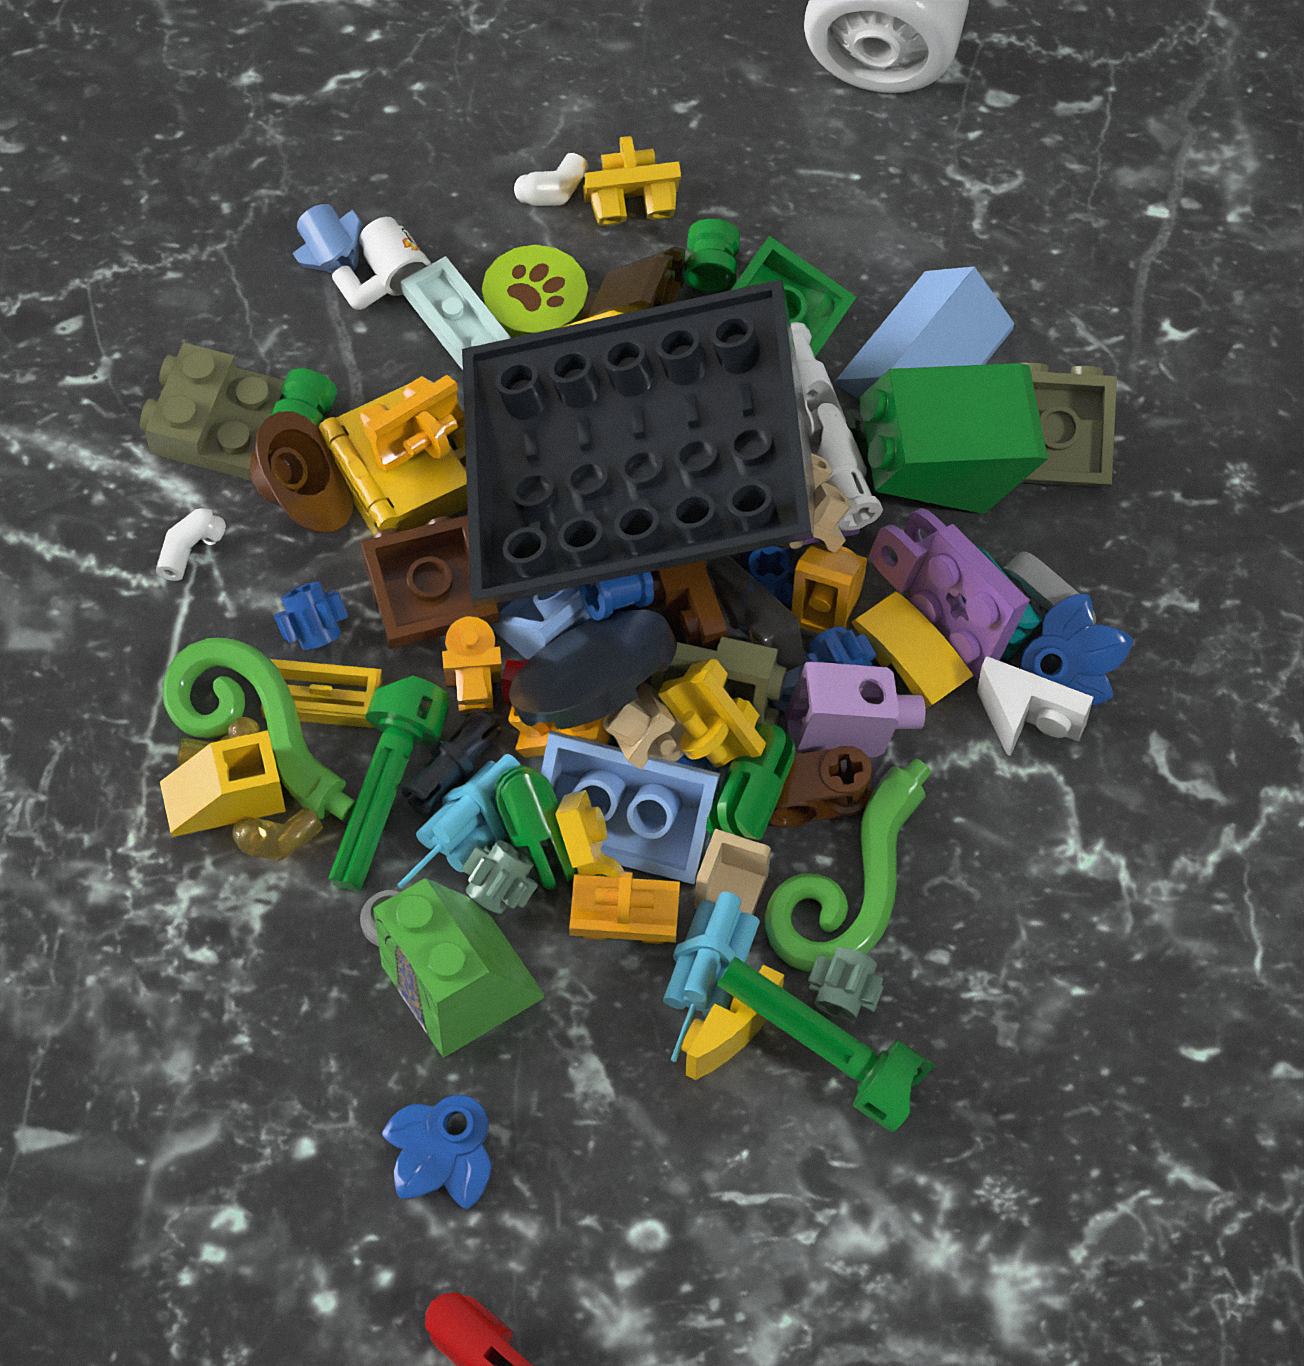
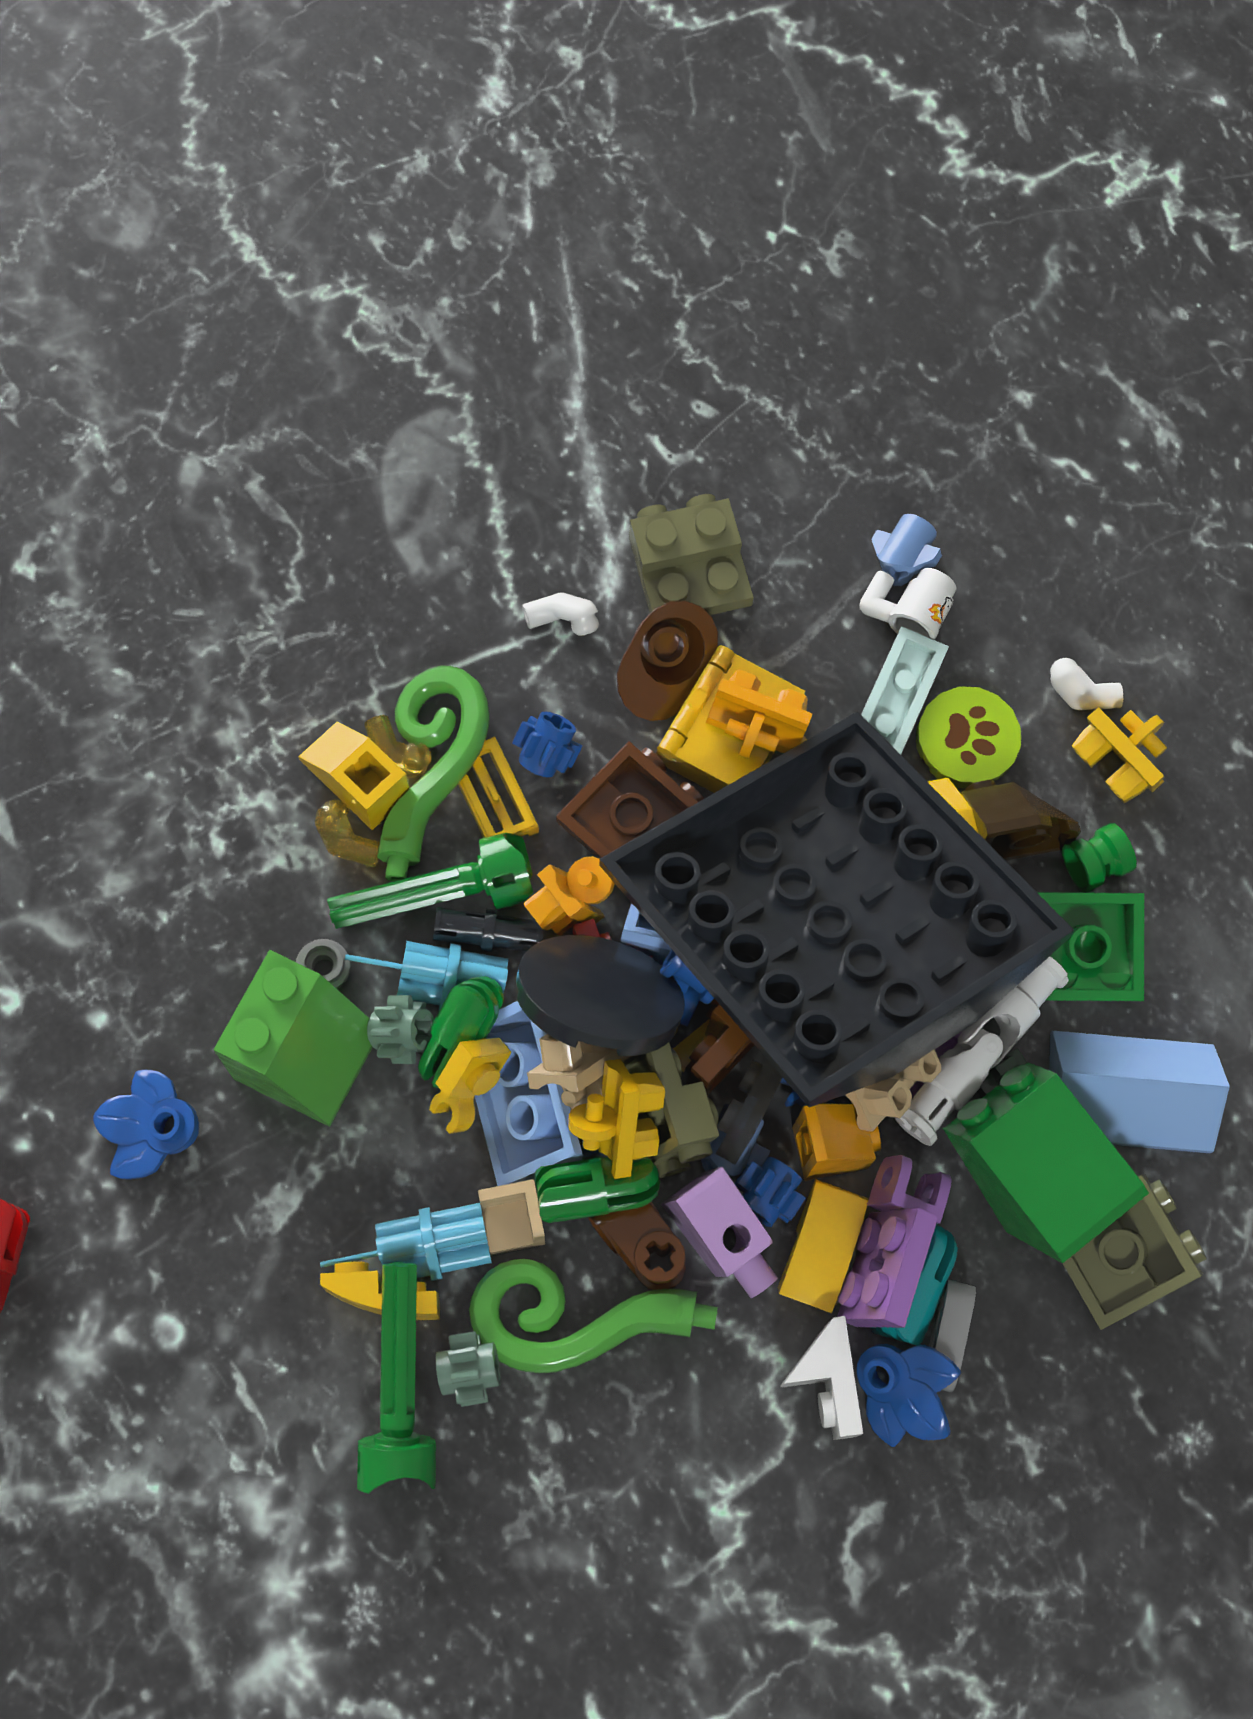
camera: 55 degrees right, 10 degrees up
(307, 394) = (740, 621): green wheel -> none
(624, 908) = (429, 1146): light orange hips -> none

